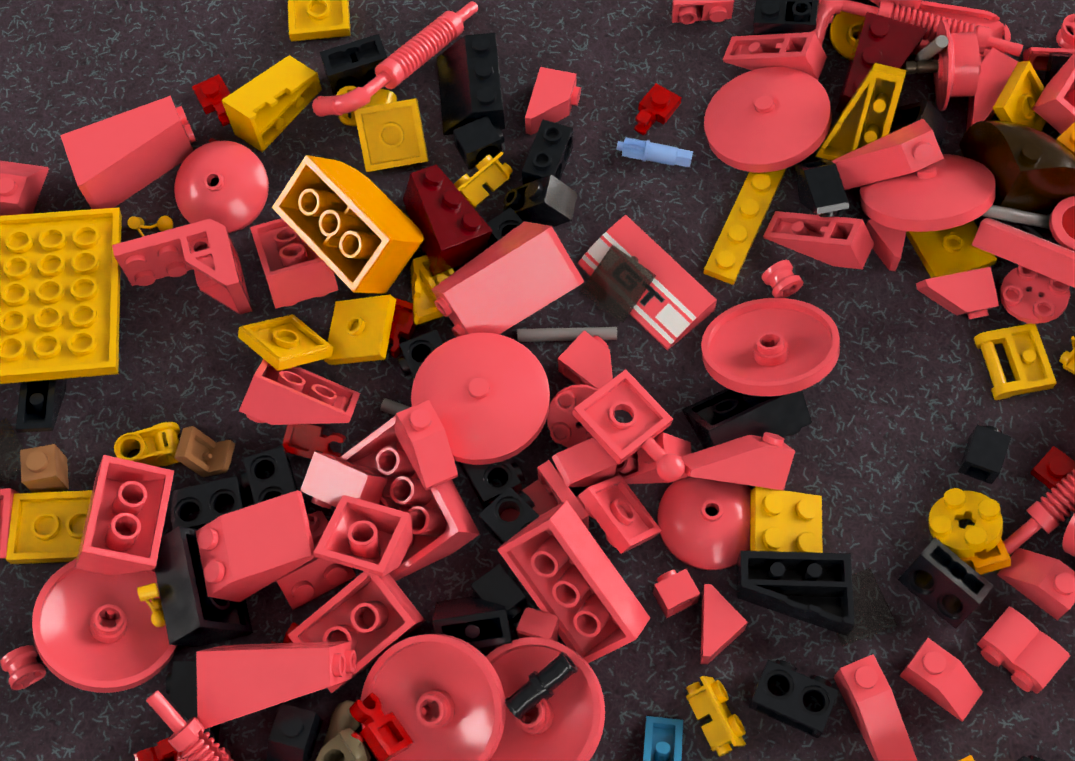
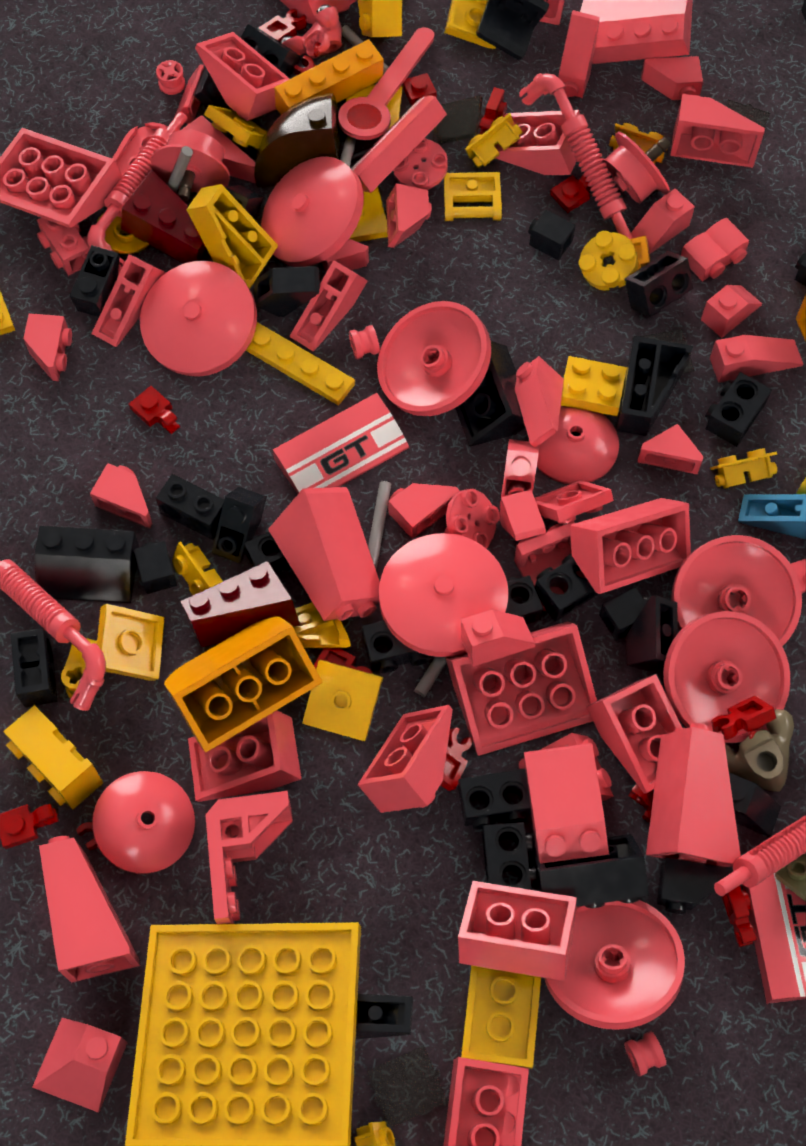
camera: 85 degrees left, 0 degrees up
(44, 469) = (440, 1023): medium nougat brick -> none
(150, 592) = (598, 916): yellow piece -> none
(151, 444) = (432, 909): yellow piece -> none
(164, 223) = (170, 890): yellow piece -> none
(204, 454) = (450, 857): medium nougat bracket -> none
(285, 342) = (347, 767): yellow plate -> none
(332, 476) = (508, 728): piece -> none
(366, 536) = (578, 698): coral slope -> none
(538, 624) = (661, 582): coral slope -> none
(541, 685) = (722, 579): black pin -> none
(617, 283) = (339, 467): clear smoke piece -> none
(625, 439) = (499, 457): coral plate -> none
(654, 152) = (204, 419): light blue piece -> none
(675, 592) = (640, 476): coral plate -> none
(890, 156) = (276, 221): coral slope -> none

